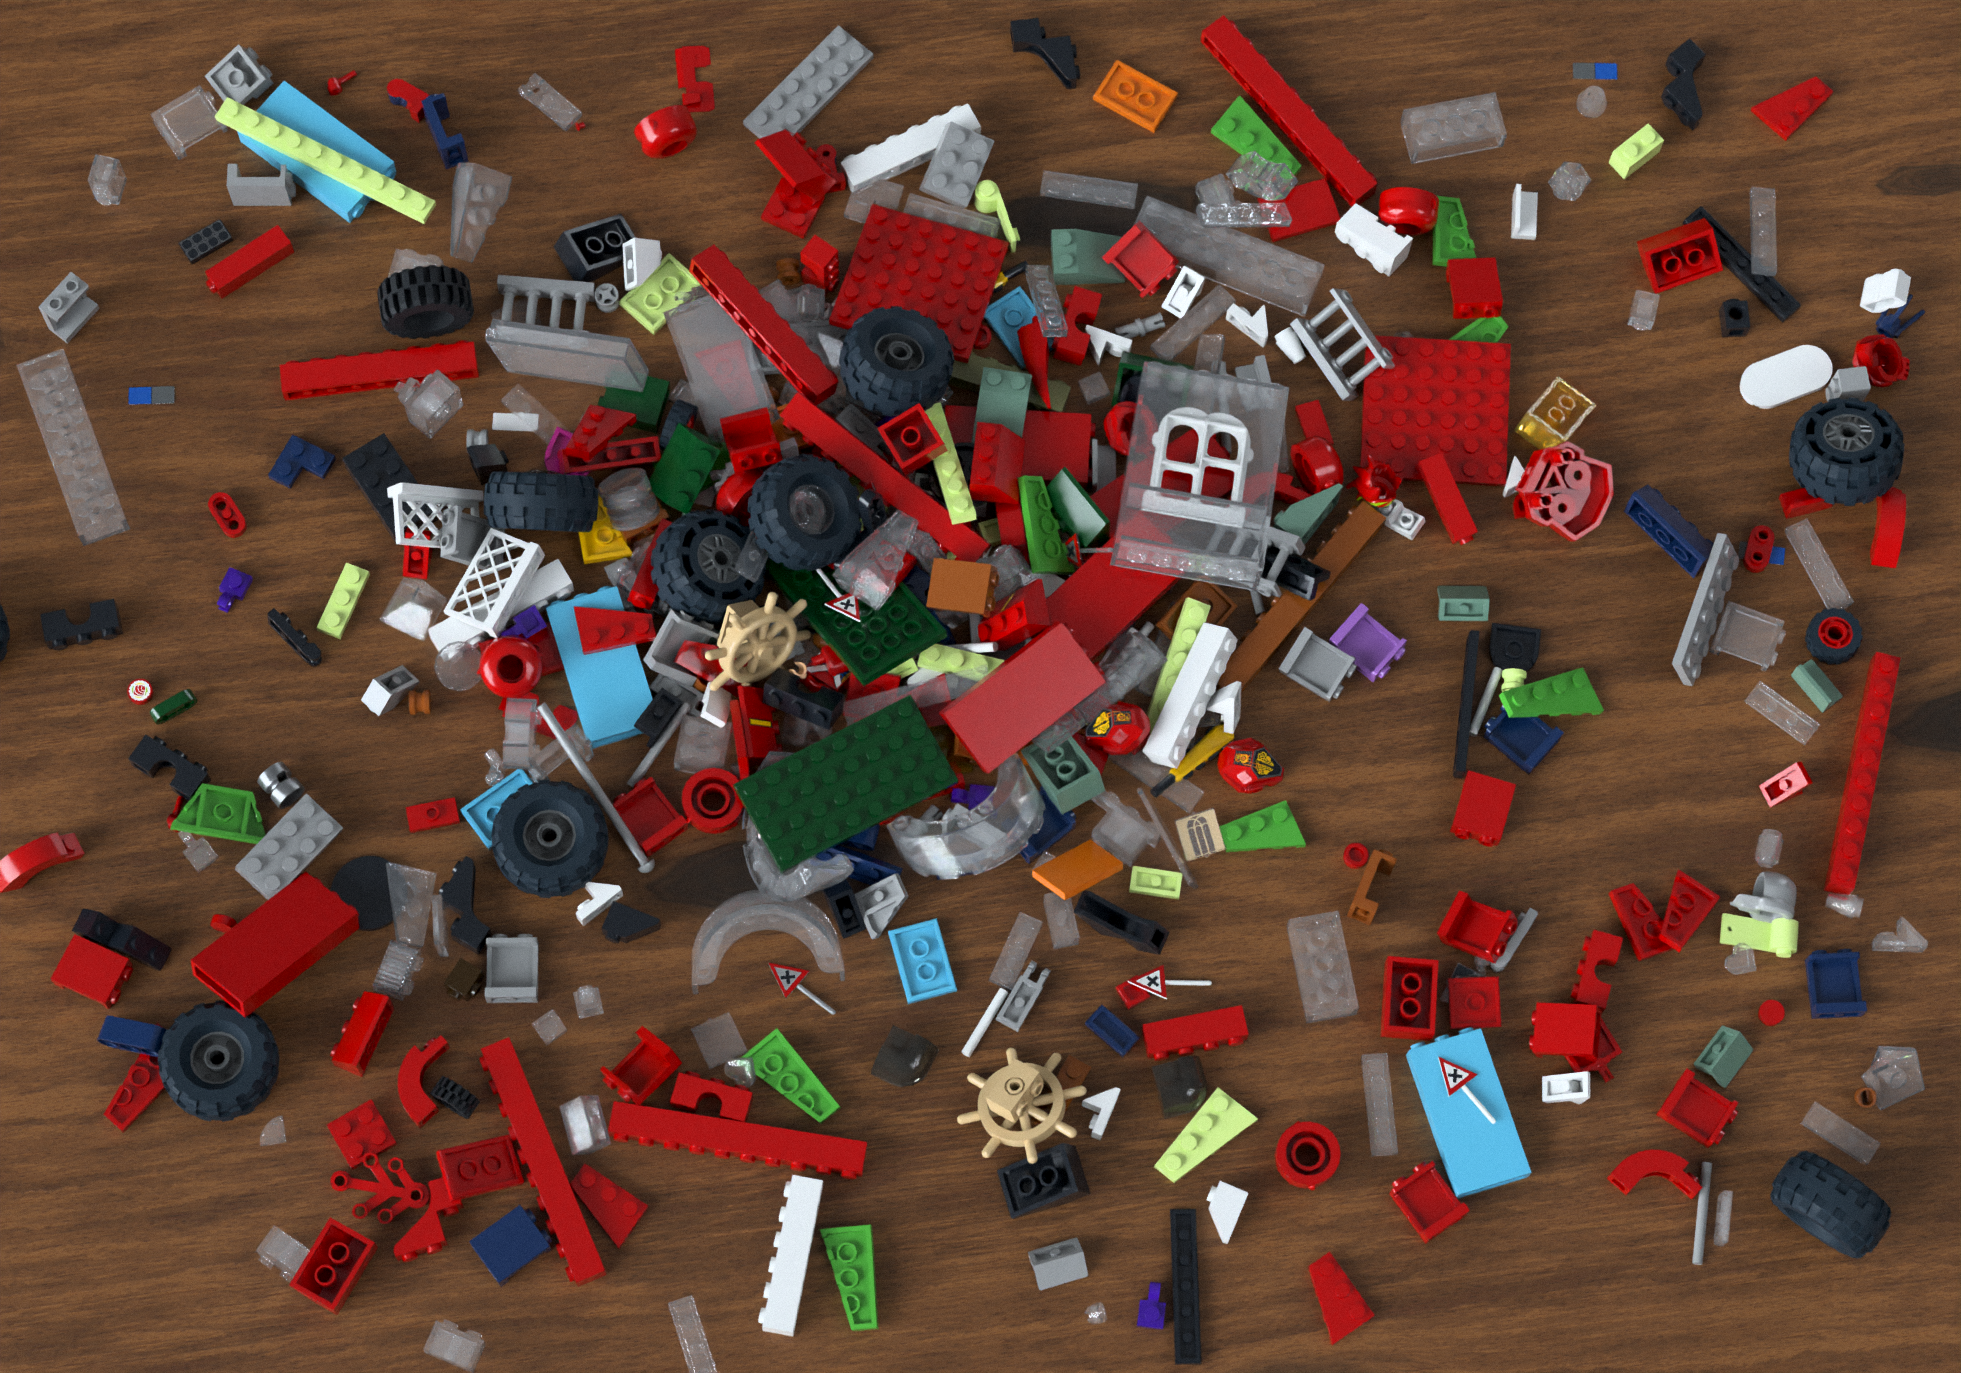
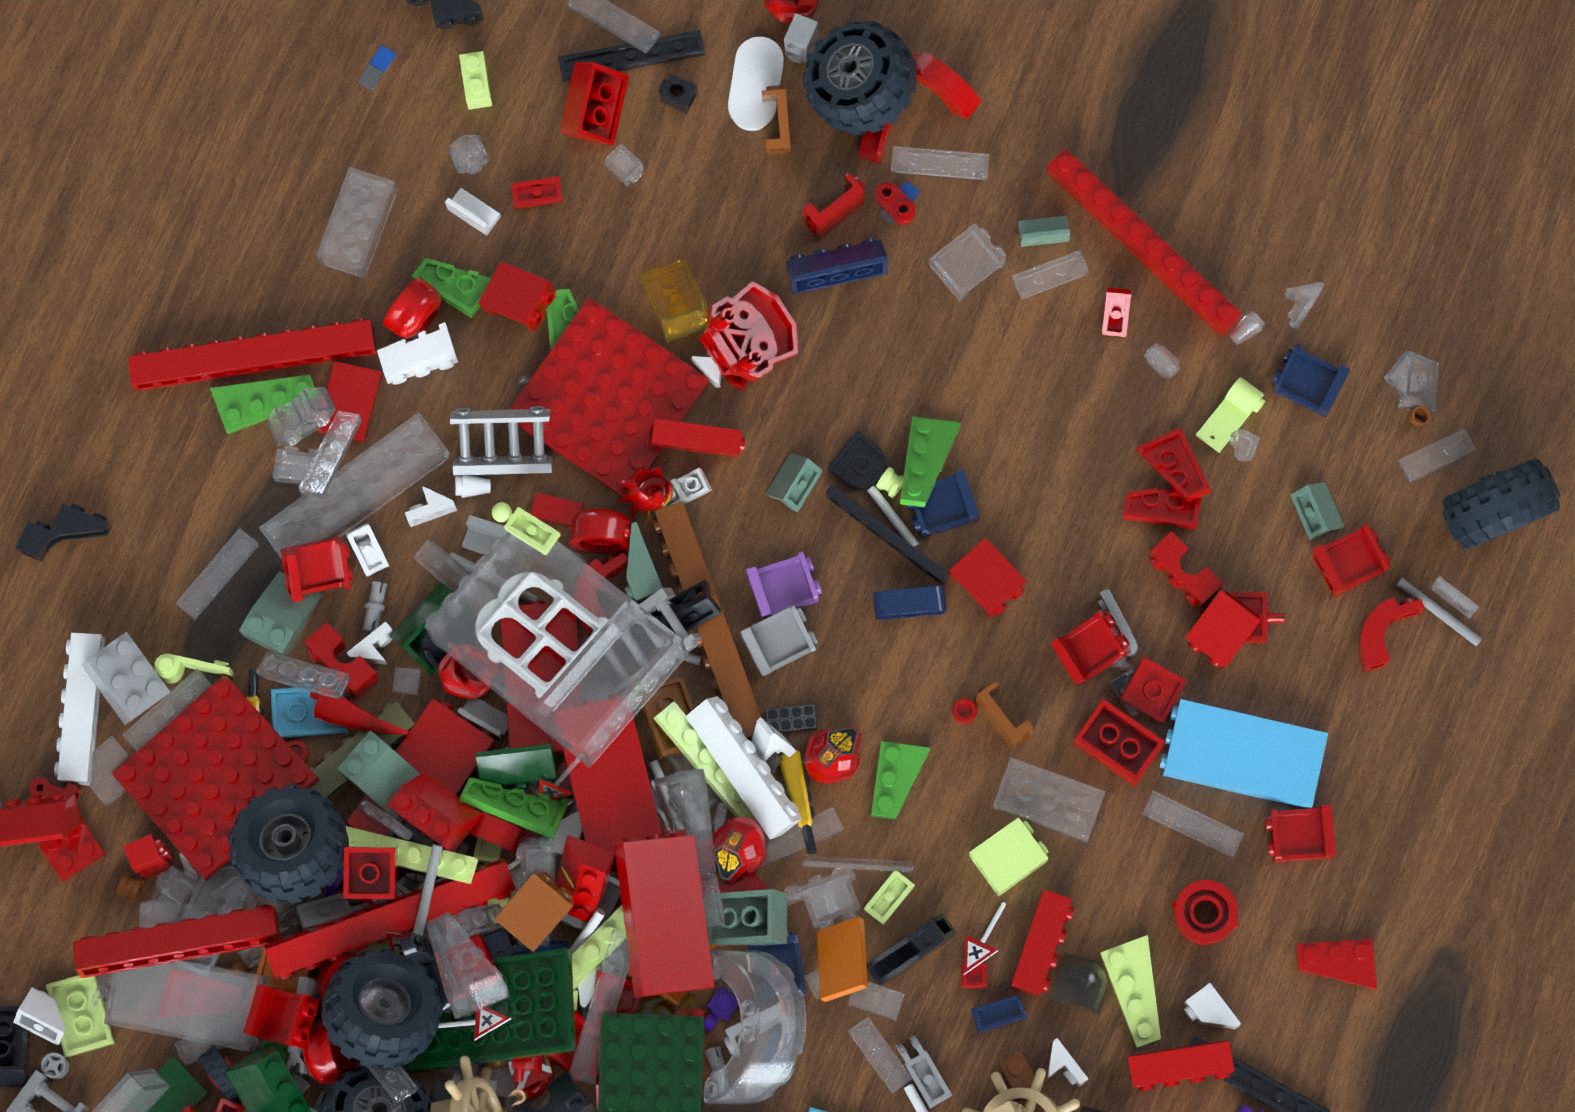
camera: 50 degrees left, 5 degrees up
(926, 493) = (427, 889): none -> light grey bar
(964, 431) = (385, 819): none -> clear tile
(1135, 96) = (152, 479): orange tile -> none
(1140, 700) = (720, 816): none -> clear tile
(1163, 1208) = (1181, 1063): none -> red brick
(1193, 324) = (400, 558): clear plate -> none
(1200, 834) = (868, 833): clear piece -> none
(1253, 962) = (1009, 856): none -> yellowish green brick
(1259, 716) = (792, 718): none -> black tile
(1278, 393) = (526, 527): none -> yellowish green plate
(1420, 756) = (909, 602): none -> dark blue beam
(1456, 1078) = (1212, 745): piece -> none
(1566, 1087) = (1271, 658): white slope -> none
(1573, 255) = (537, 192): none -> red plate
(1592, 102) = (405, 89): clear piece -> none
(1705, 609) = (922, 278): light grey plate -> none
(1719, 501) = (838, 211): none -> red panel
(1750, 424) = (782, 144): none -> dark orange panel
(1771, 899) = (1208, 386): light grey piece -> none
(1771, 1012) = (1302, 447): red tile -> none
(1839, 623) = (1010, 204): black wheel -> none

